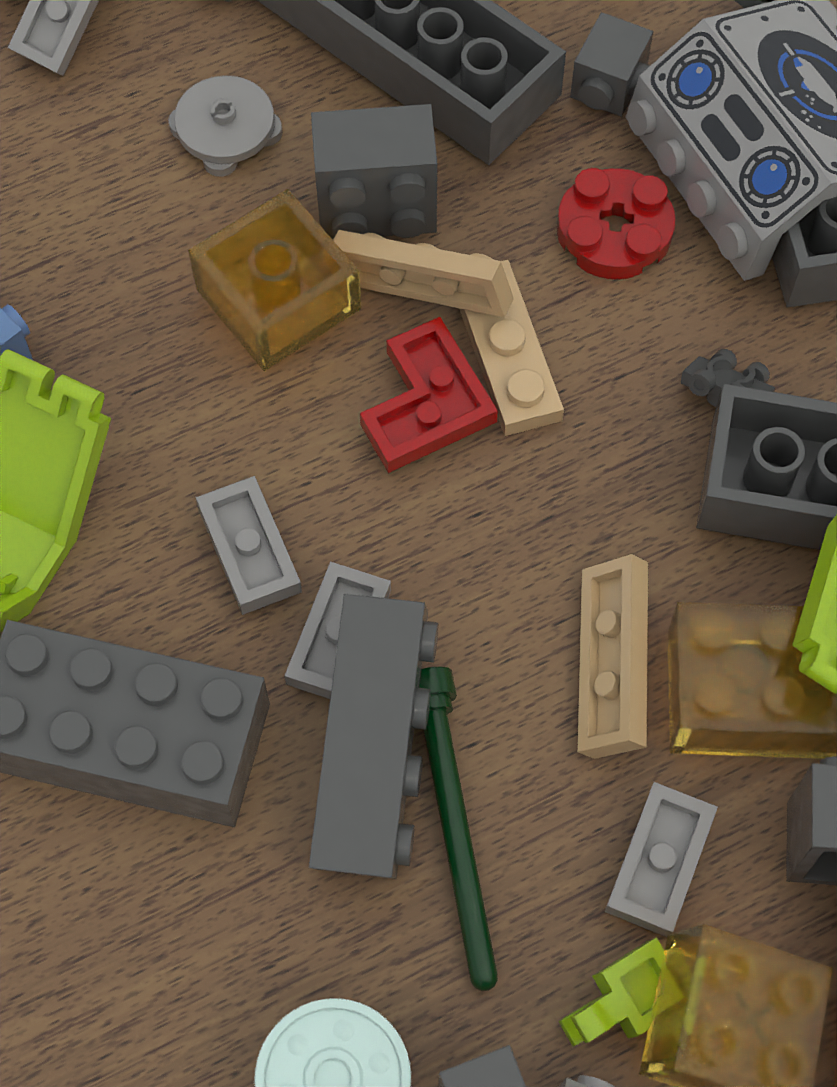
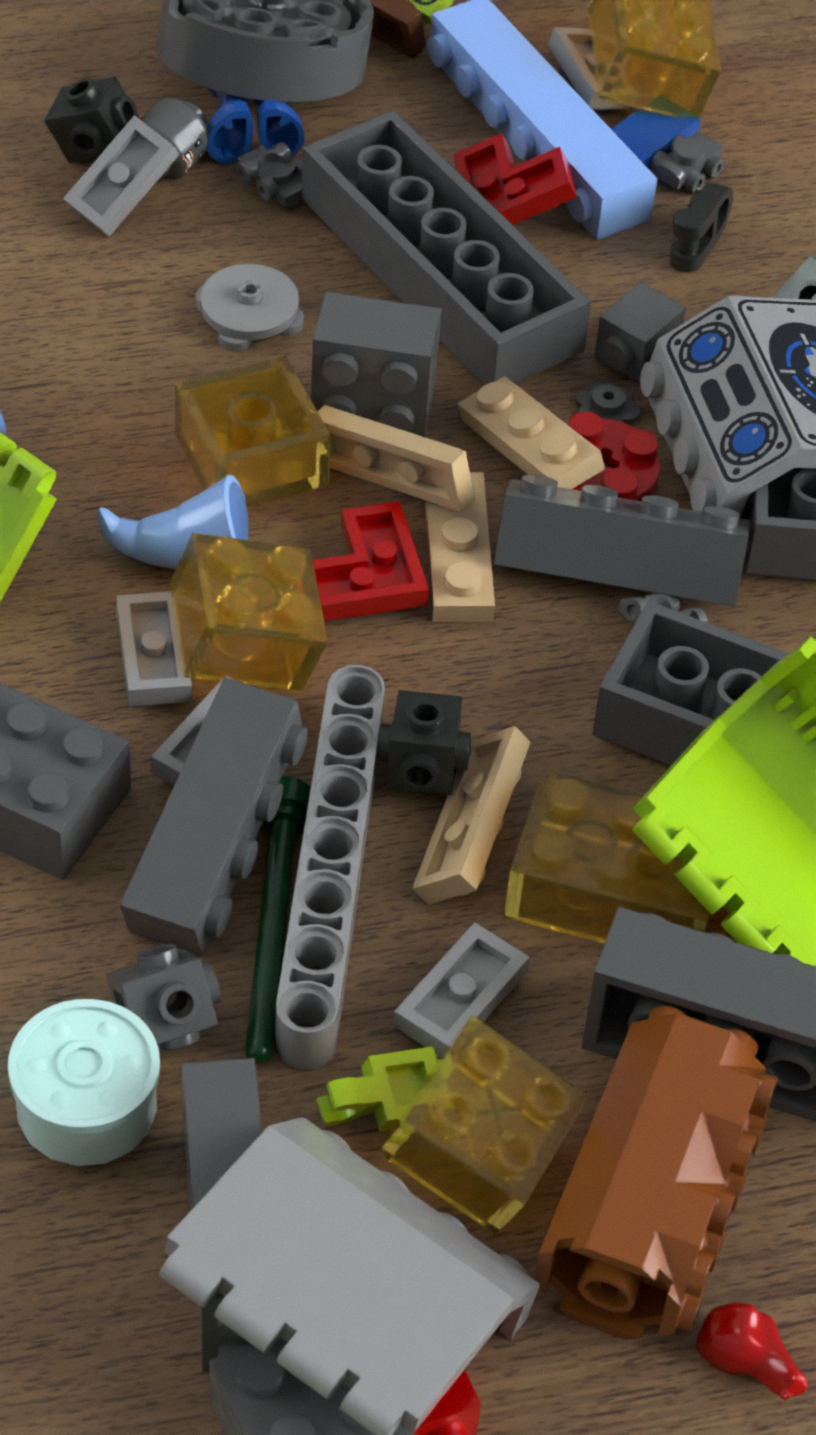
camera: 10 degrees right, 15 degrees down
(252, 408) = (164, 536): none -> light blue hat
(333, 488) = (248, 612): none -> clear yellow brick
(381, 955) = (168, 993): none -> dark grey brick
(491, 775) = (338, 831): none -> light grey beam
(545, 211) = (530, 434): none -> tan plate
(547, 591) = (424, 743): none -> pearl dark grey brick
(598, 147) = (609, 402): none -> dark grey plant
(670, 310) = (622, 540): none -> dark grey brick

